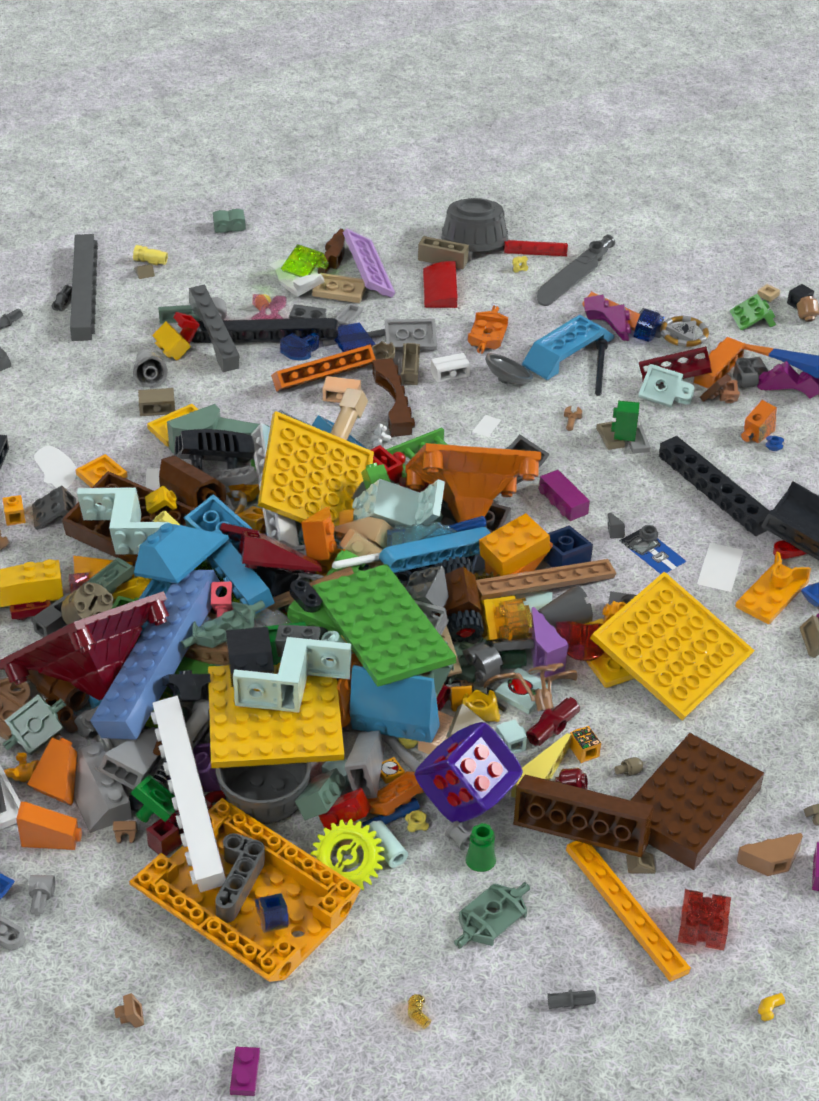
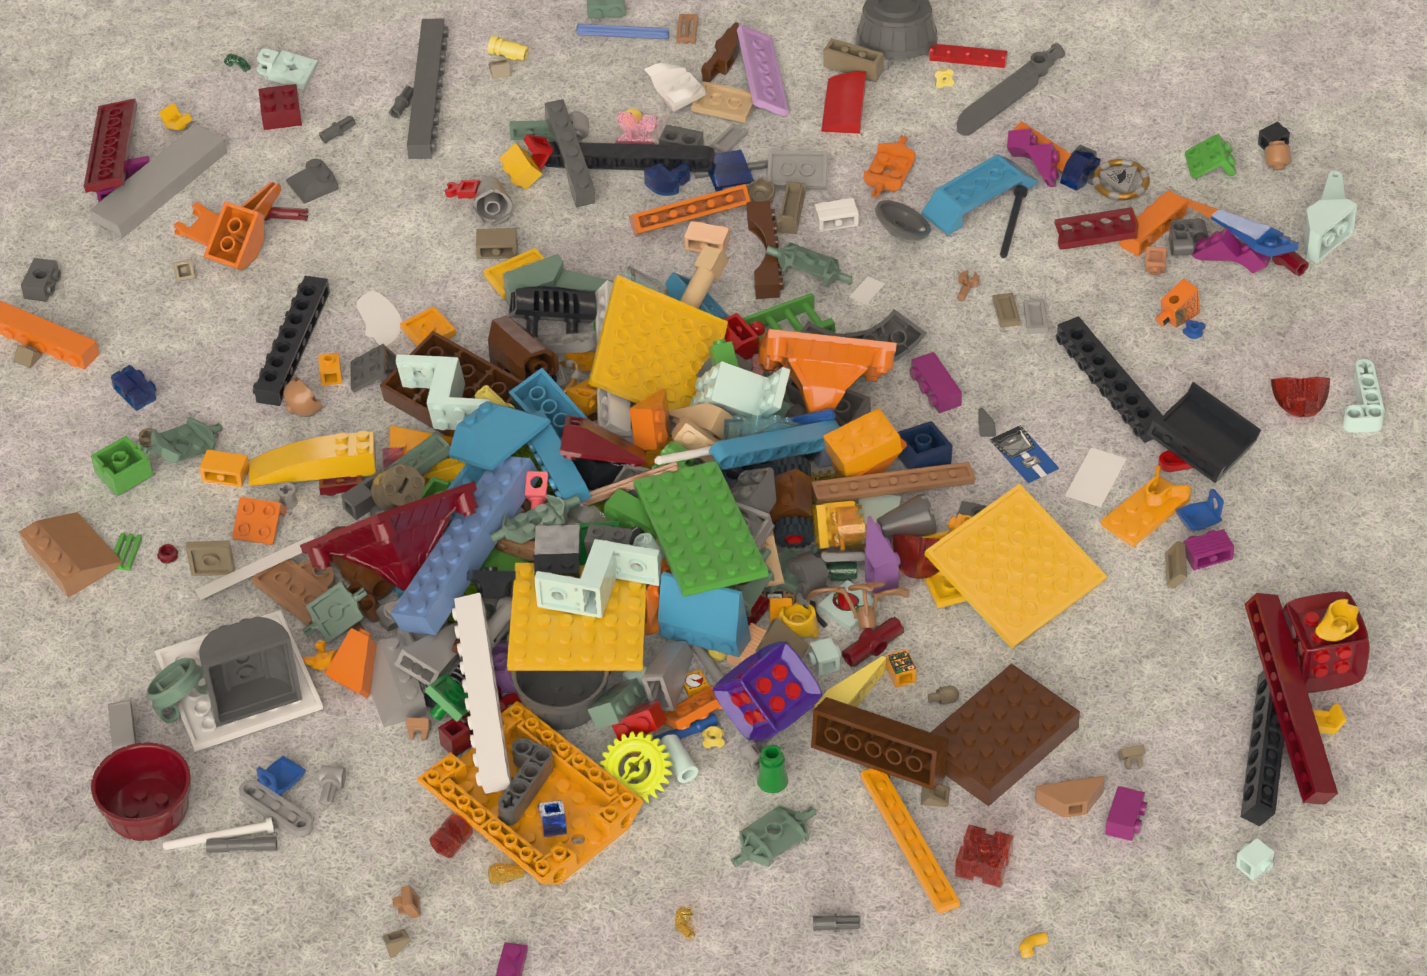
camera: 10 degrees right, 5 degrees up
(46, 828) = (340, 720): orange slope -> none
(121, 1054) = (396, 941): none -> dark tan slope
(124, 361) = (465, 189): none -> red plate
(152, 479) = (481, 344): white sticker -> none
(159, 499) = (485, 368): yellow bracket -> none
(168, 938) = (450, 836): none -> clear red wheel
(227, 972) = (503, 873): none -> clear yellow cone
(234, 532) = (558, 414): dark red tile -> none
(245, 240) = (622, 31): none -> axle
(299, 228) = (687, 38): none -> medium nougat tile
(303, 261) = (684, 68): clear neon green bracket -> none
(305, 596) = (621, 489): black plate -> none
(345, 516) = (684, 399): light orange slope -> none
(380, 435) = (743, 297): white plant -> none
(436, 403) = (810, 262): none -> sand green plate
(573, 777) = (880, 704): dark red head -> none
(626, 420) = (1022, 296): green brick -> none
(648, 533) = (1022, 433): dark grey plate -> none
(673, 390) = (1089, 257): light aqua plate -> none
(719, 385) = (1139, 258): reddish brown plate -> none
(768, 292) = (1237, 130): tan plate -> none

